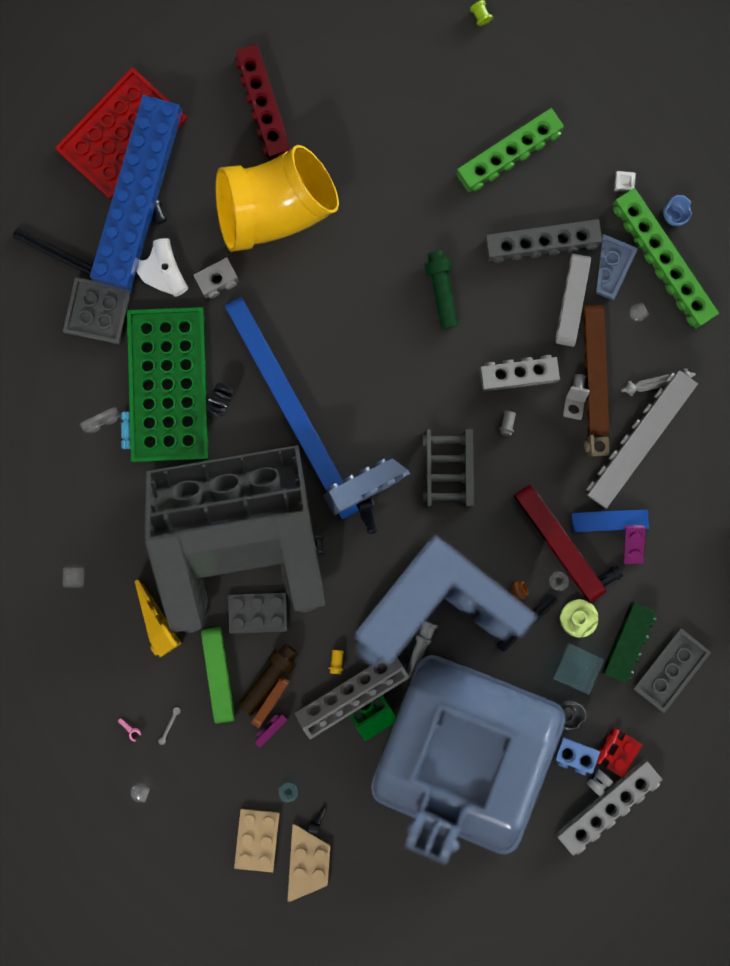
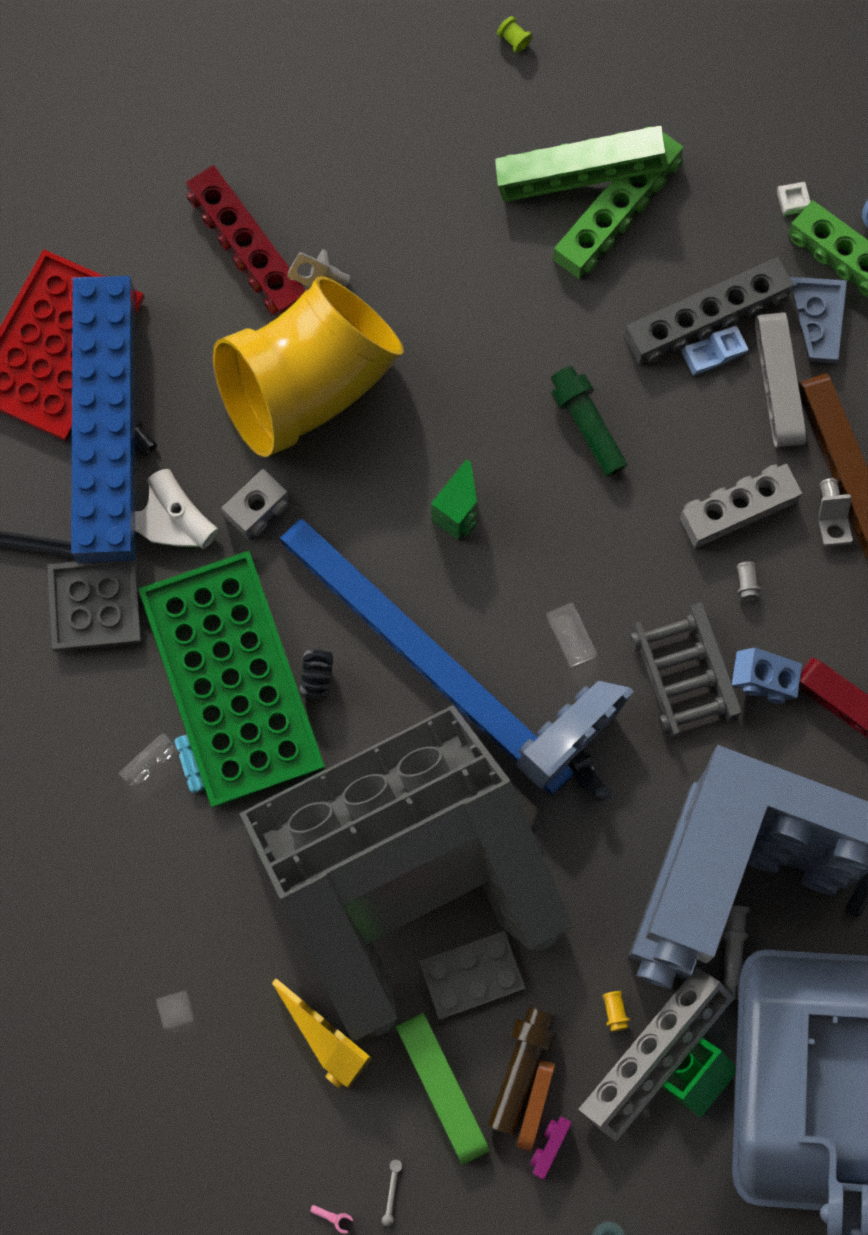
camera: 10 degrees left, 10 degrees down
(303, 137) = (320, 267): none -> light grey bracket
(341, 318) = (456, 504): none -> green slope
(386, 423) = (571, 634): none -> clear plate
(493, 117) = (581, 163): none -> brick
(498, 485) = (766, 675): none -> medium blue brick
(538, 268) = (715, 351): none -> light blue slope

